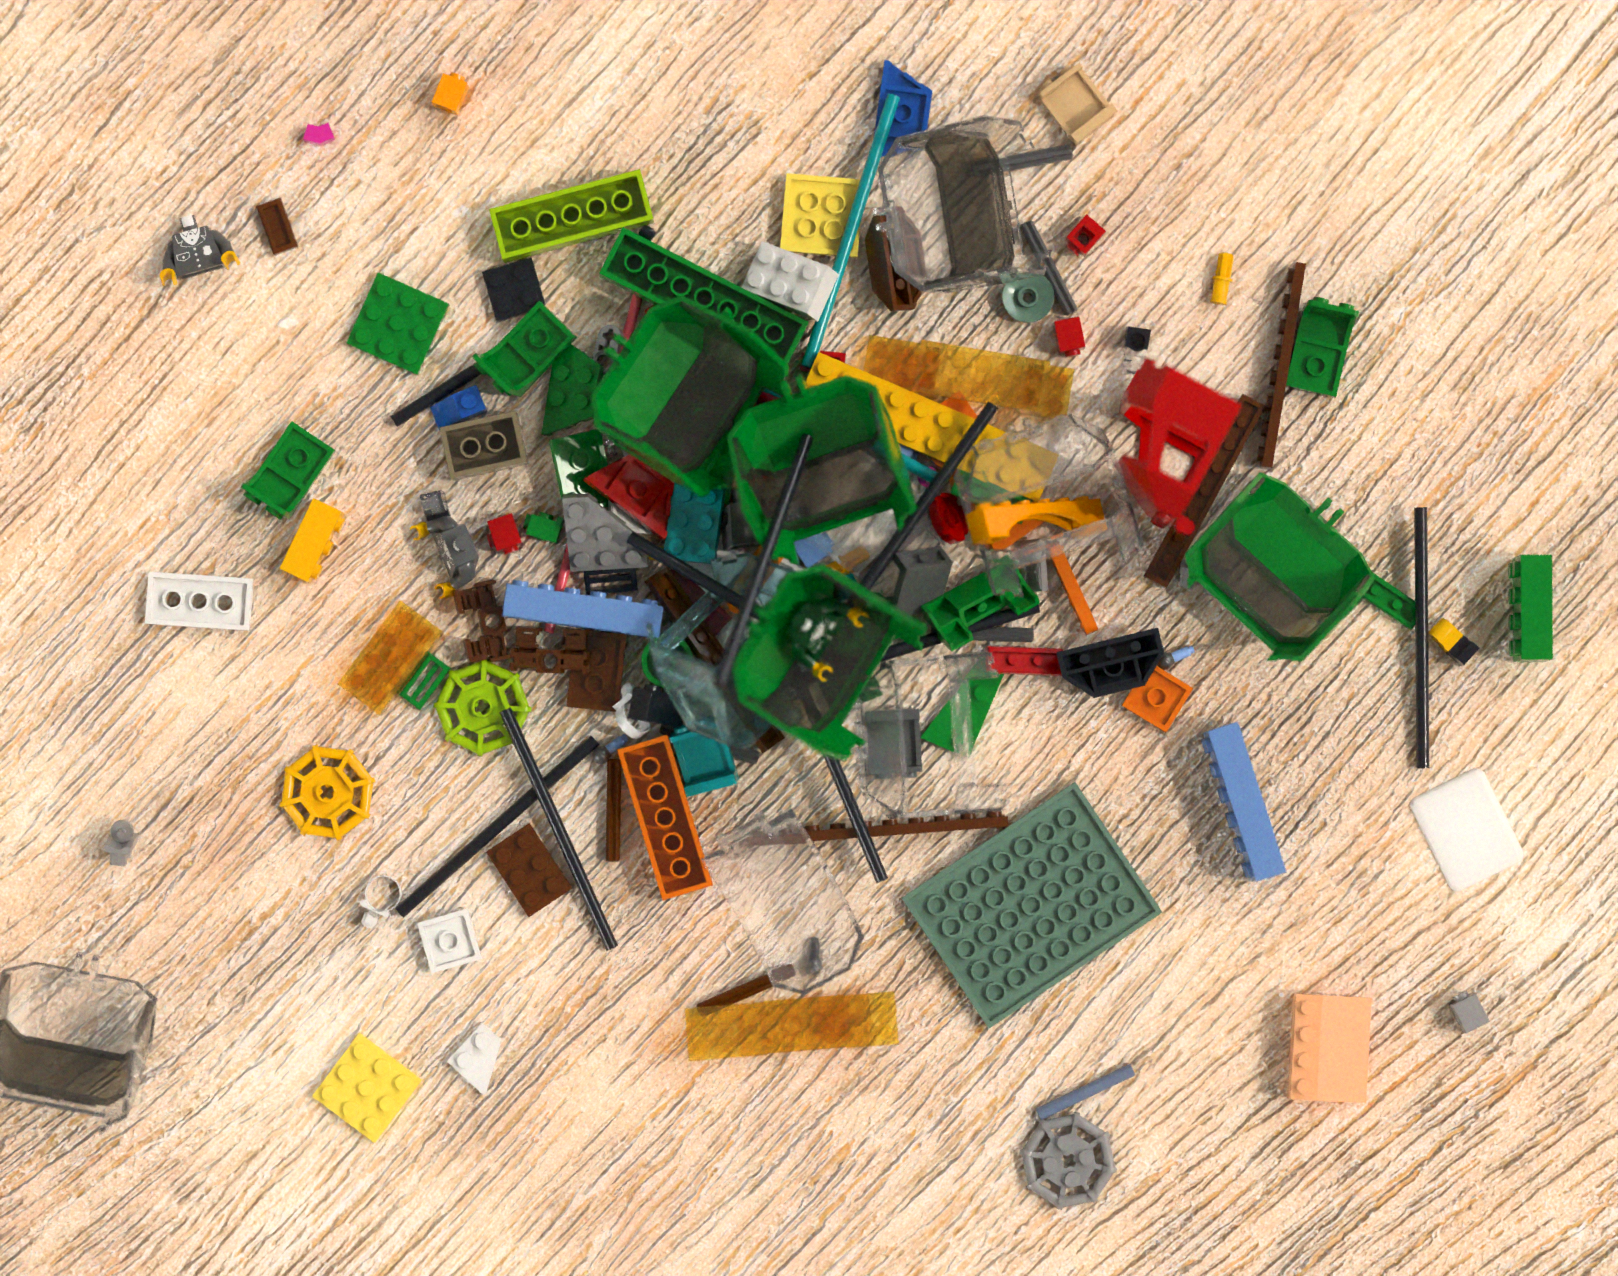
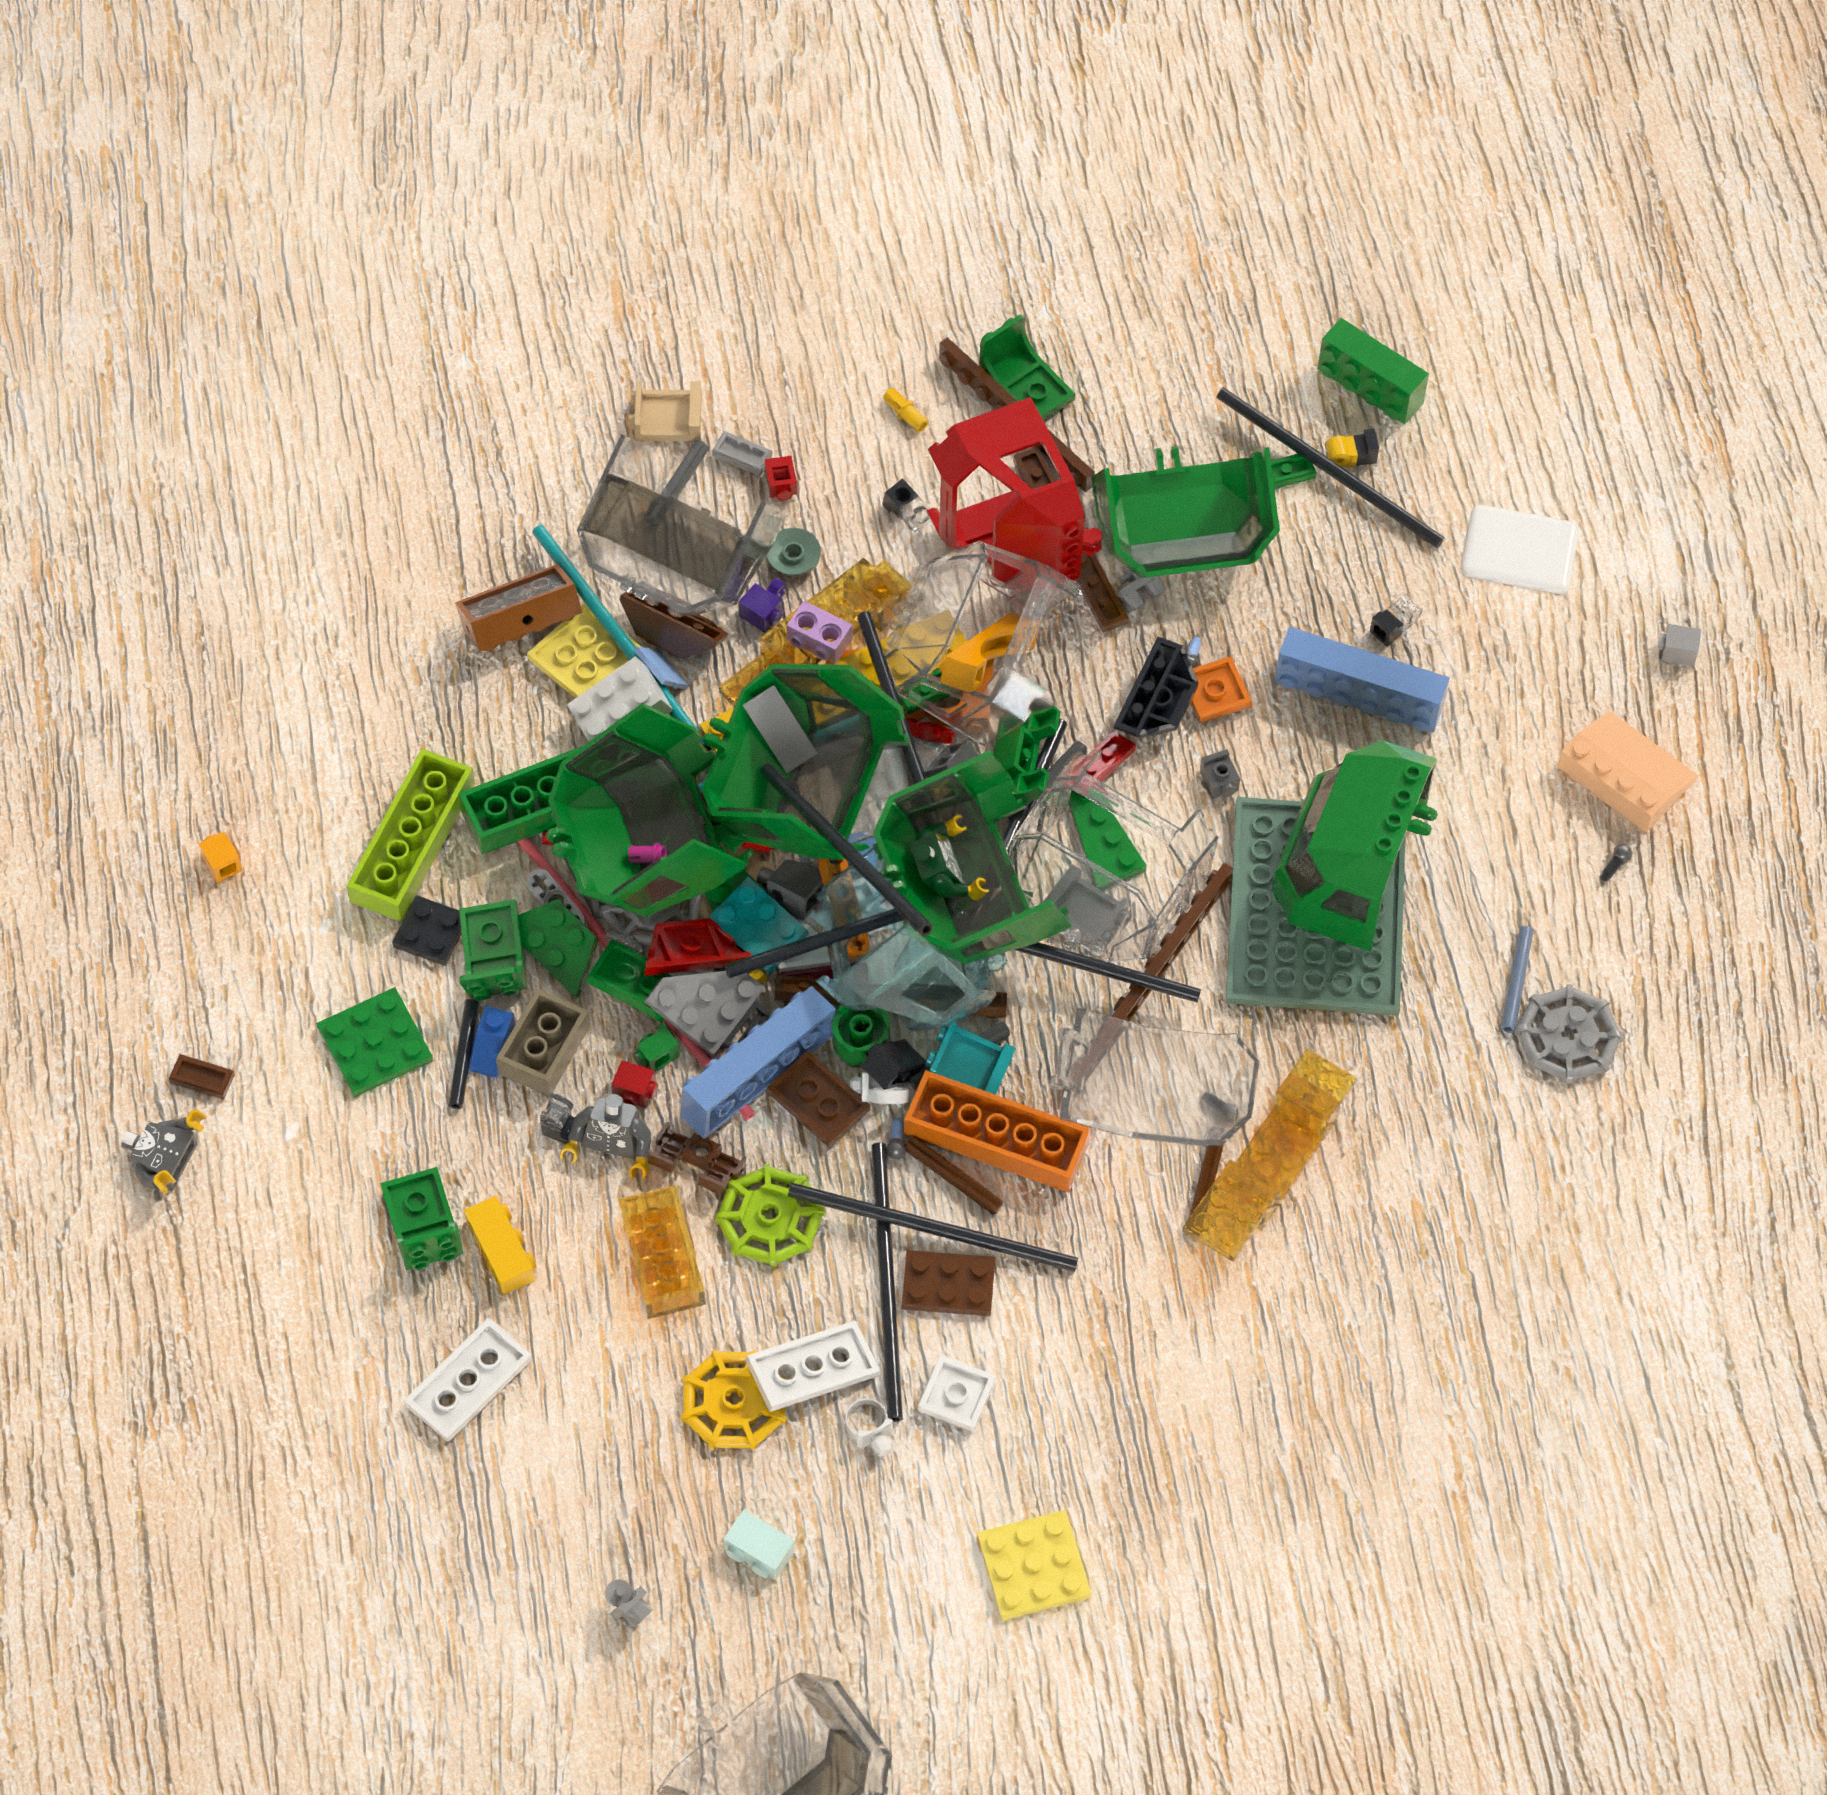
camera: 50 degrees left, 25 degrees down
(234, 894) = (758, 1545): none -> light aqua brick
(319, 134) = (156, 984): dark pink piece -> none
(385, 811) = (807, 1383): none -> white plate
(438, 663) = (711, 1269): green tile -> none
(477, 1057) = (1084, 1450): white wing -> none
(568, 658) = (759, 1143): reddish brown piece -> none
(675, 413) = (646, 854): none -> dark pink pin
(814, 138) = (519, 608): none -> dark orange brick
(842, 425) = (780, 729): none -> light grey sticker
(850, 281) = (661, 668): none -> light blue piece
(913, 106) = (561, 526): blue wing -> none
(960, 383) = (823, 627): none -> lavender brick
(962, 311) = (762, 606): none -> dark purple brick
(1052, 274) = (819, 530): dark grey axle -> none
(1069, 336) = (853, 544): red brick -> none
(1074, 594) = (1074, 688): orange beam -> none
(1085, 188) = (741, 453): none -> light grey plate
(1085, 905) = (1349, 839): none -> green windscreen
(1088, 745) = (1219, 774): none -> dark grey brick
(1250, 1094) = (1621, 854): none -> piece
(1325, 785) = (1395, 620): none -> leg

